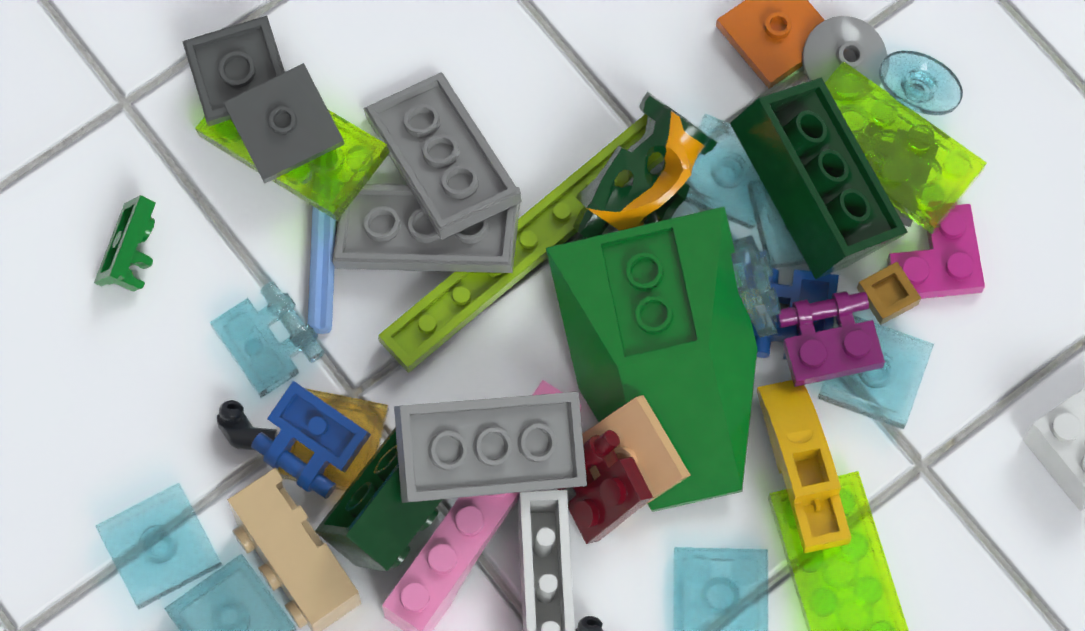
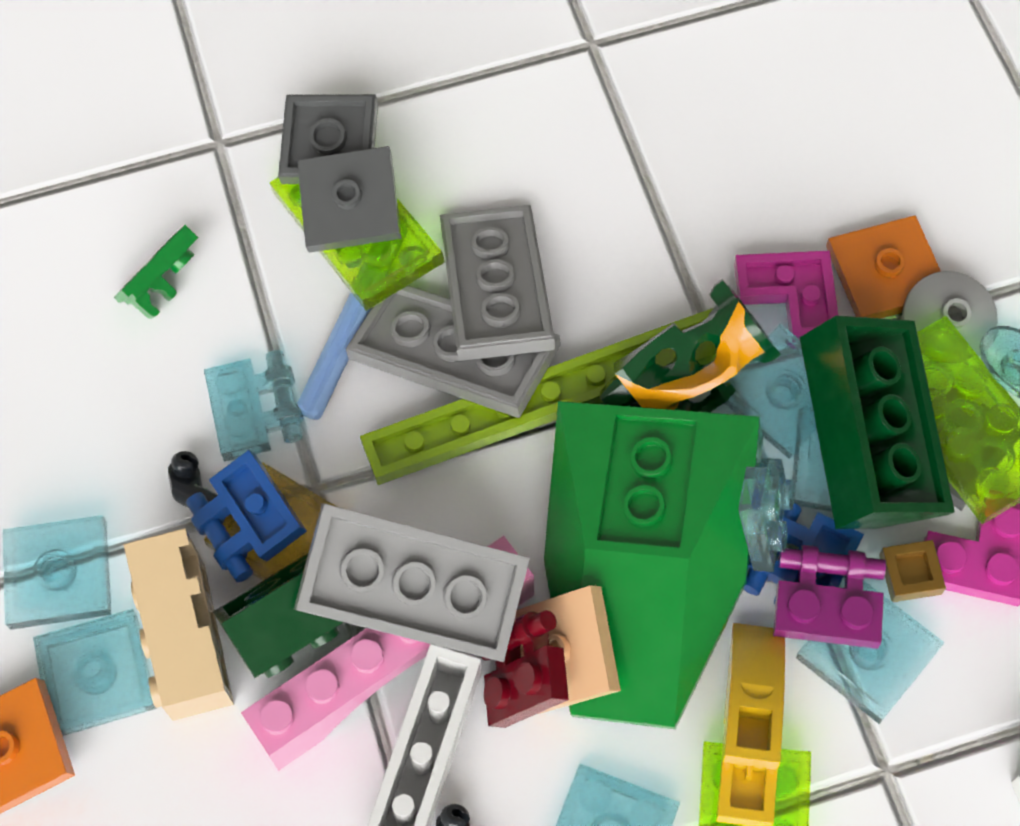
camera: 25 degrees right, 5 degrees down
(702, 67) = (791, 278): none -> dark pink plate

